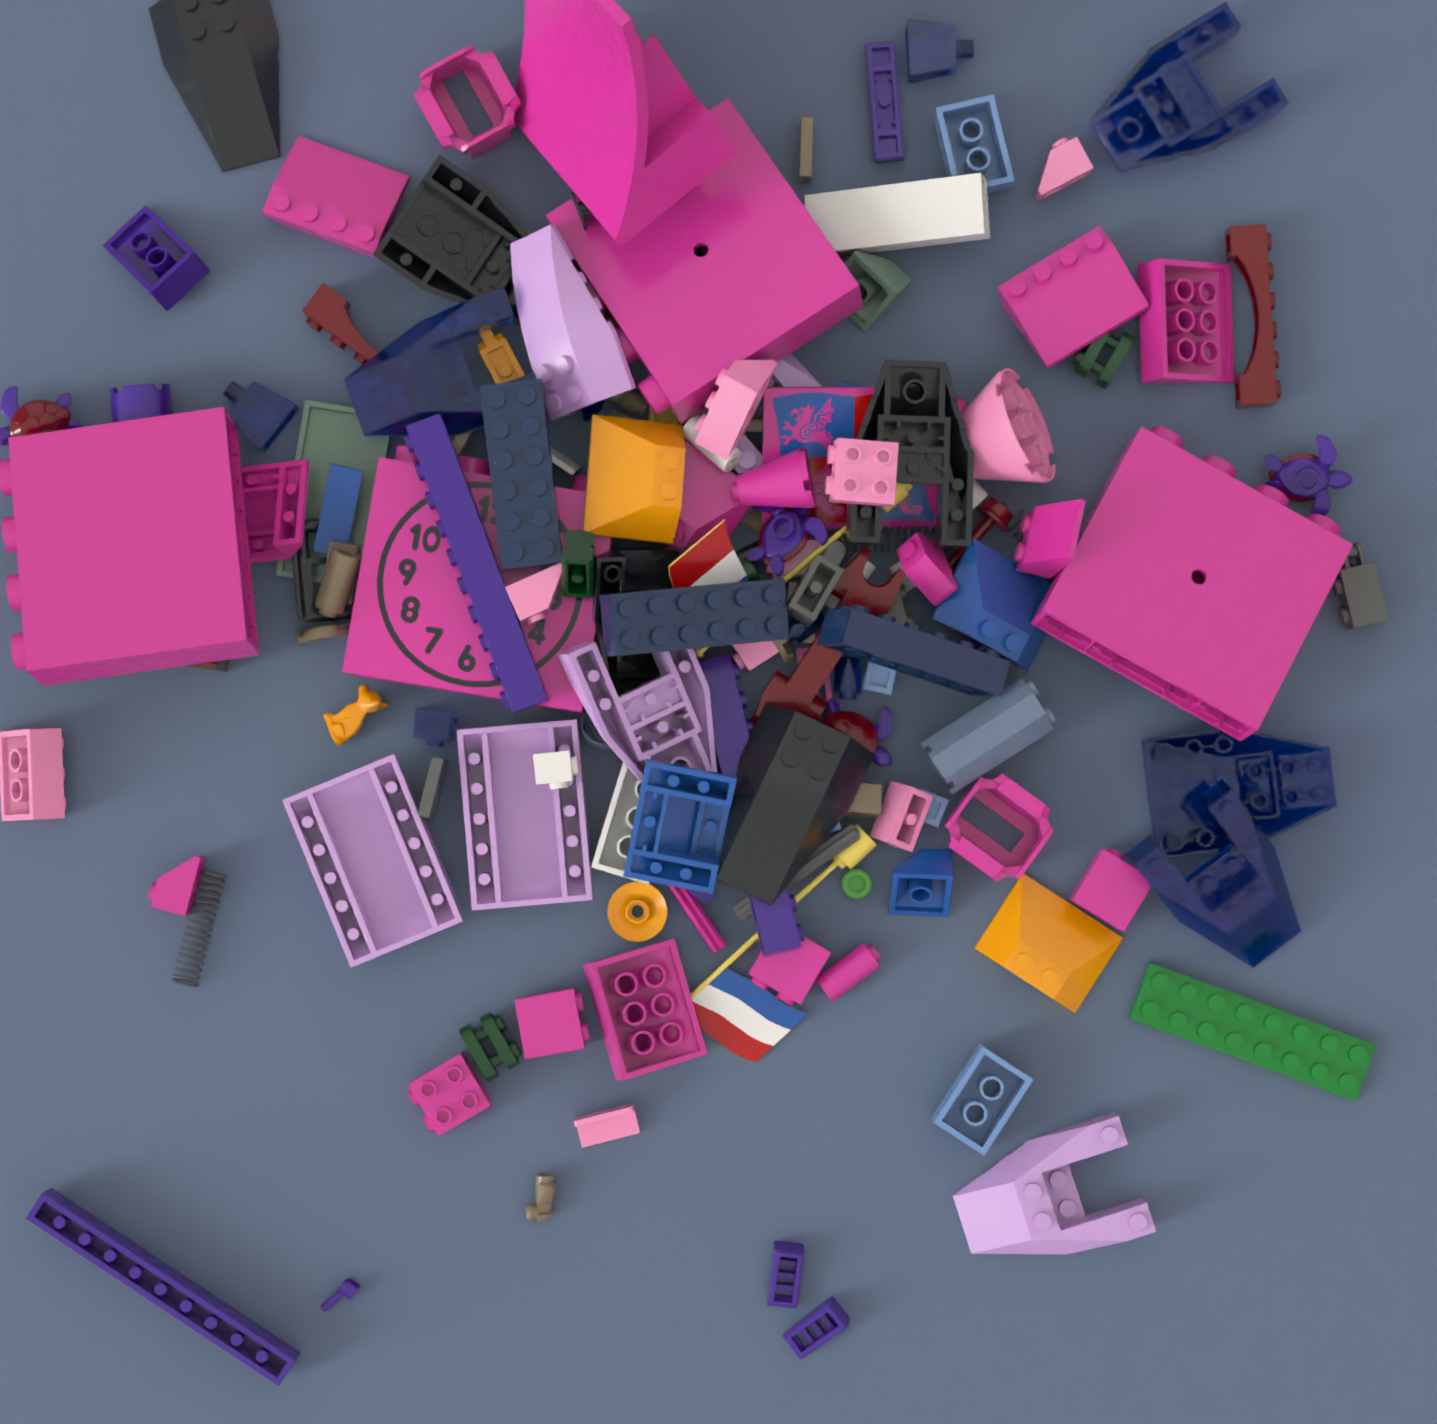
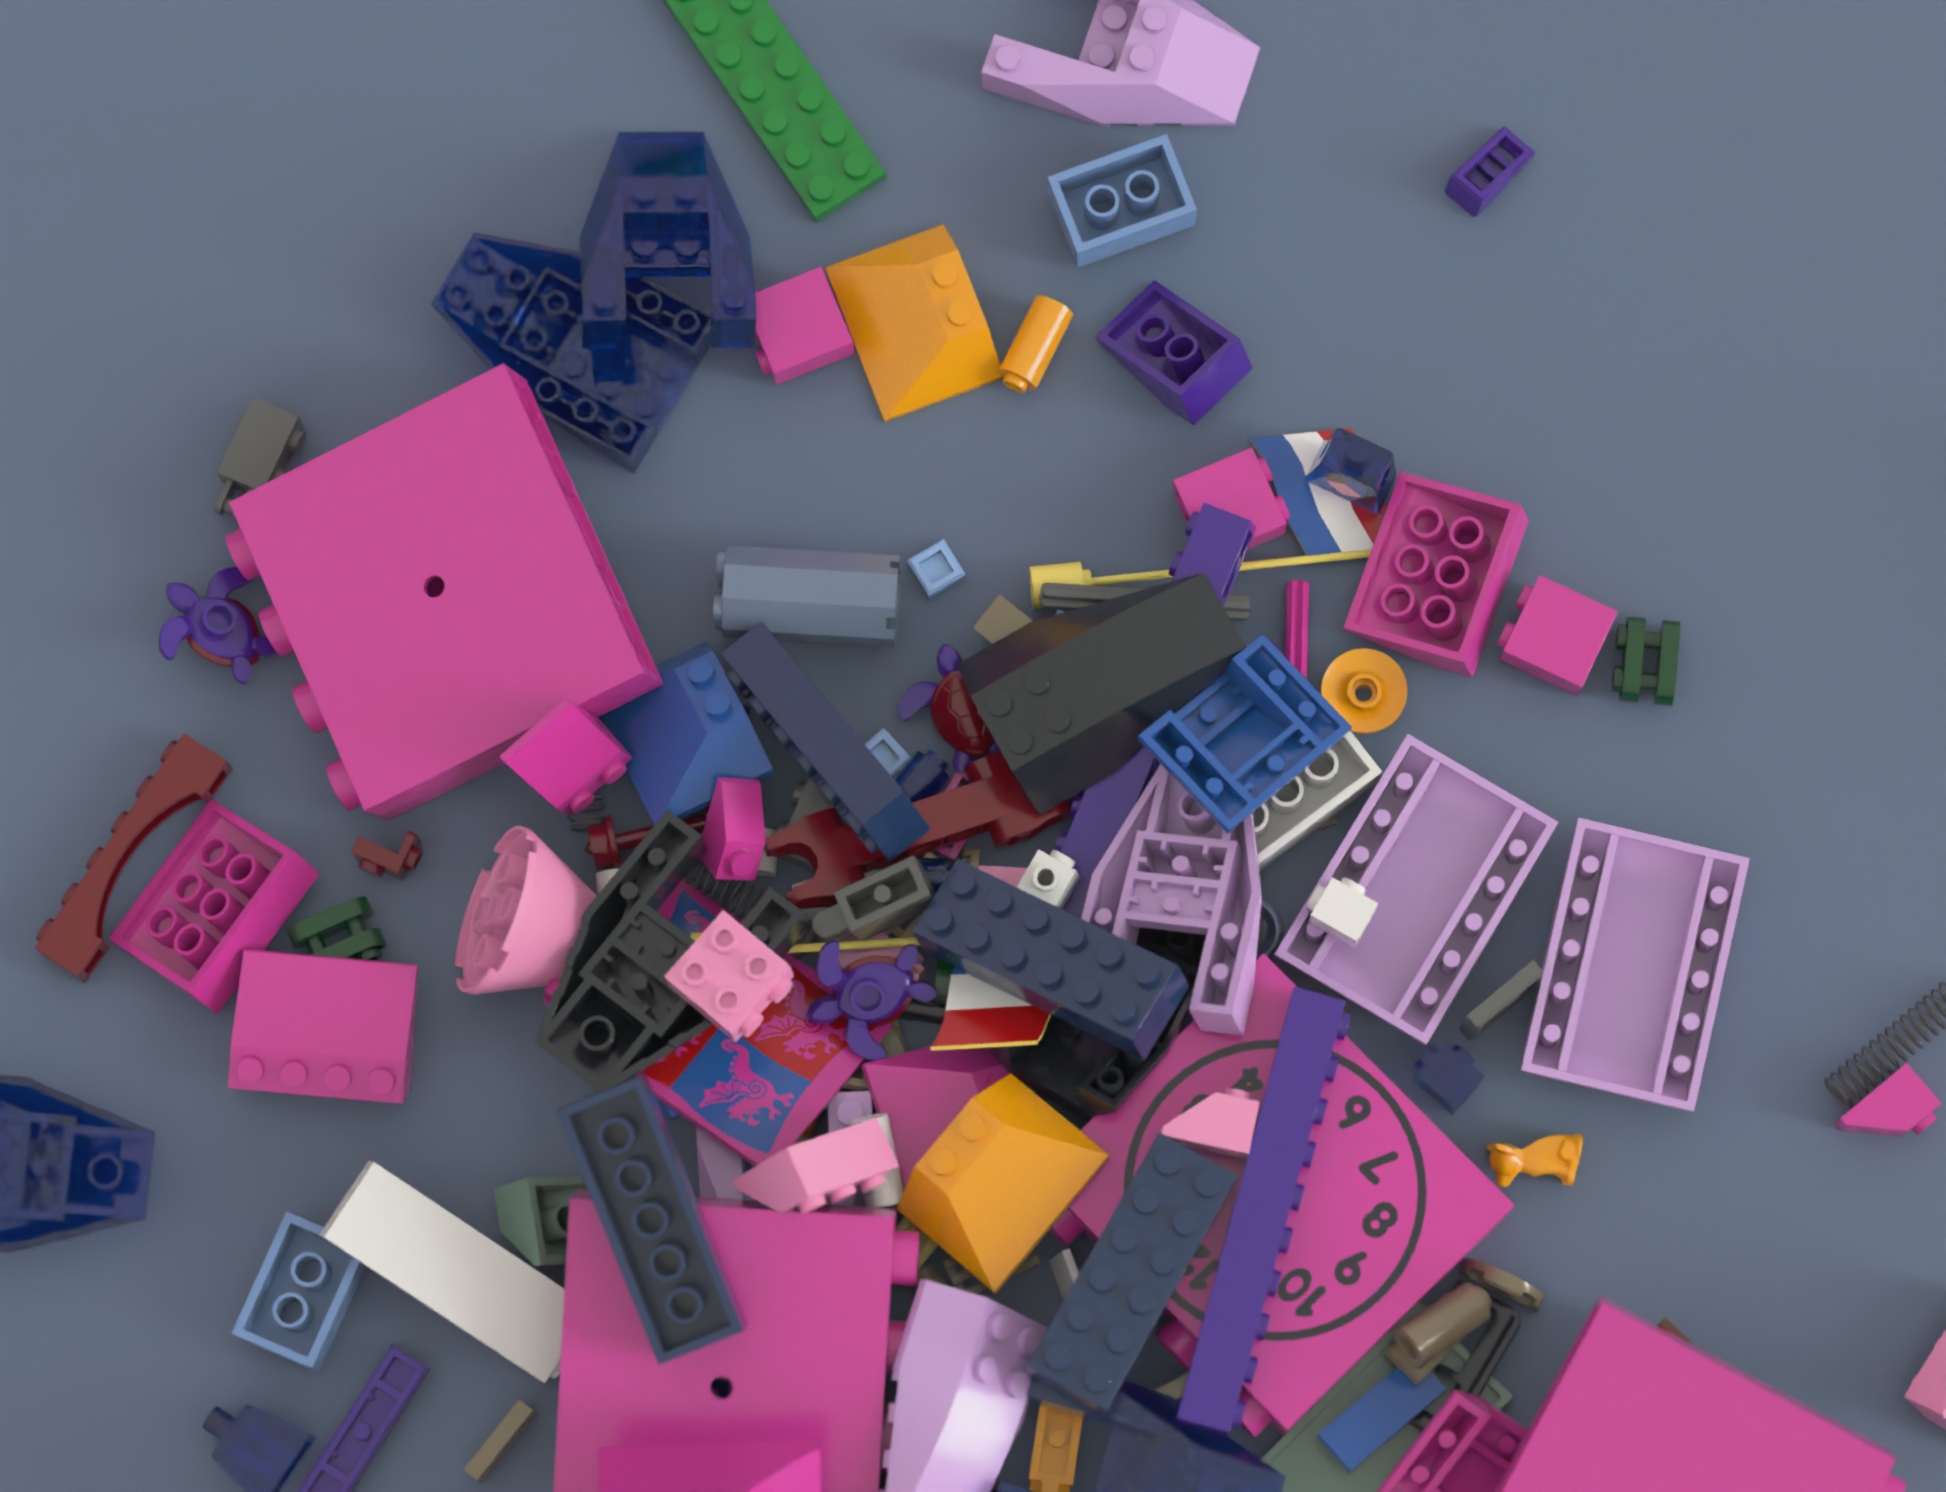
camera: 140 degrees left, 10 degrees down
(449, 1094) = (1736, 640): dark pink brick -> none
(544, 1194) = (1708, 448): dark tan arm -> none
(578, 564) = (1141, 1116): dark green brick -> none
(607, 1125) = (1574, 478): bright pink panel -> none
(731, 665) = (1050, 877): none -> white brick
(734, 1034) = (1354, 470): none -> clear blue torso
(778, 483) = (835, 1051): dark pink cone -> none
(803, 301) = (652, 1218): none -> dark blue brick
(837, 1313) = (1478, 102): dark purple slope -> none
(849, 971) = (1166, 450): dark pink brick -> none
(856, 883) = (1085, 543): bright green tile -> none
(887, 1033) = (1176, 351): none -> dark purple slope
(901, 816) = (975, 576): bright pink brick -> none
(922, 884) = (1007, 485): blue slope -> none
(969, 978) = (1035, 344): none -> light orange brick
(1014, 806) = (910, 468): dark pink piece -> none
(1063, 167) = (215, 1194): bright pink slope -> none
(1114, 414) = (377, 859): none -> dark red bracket

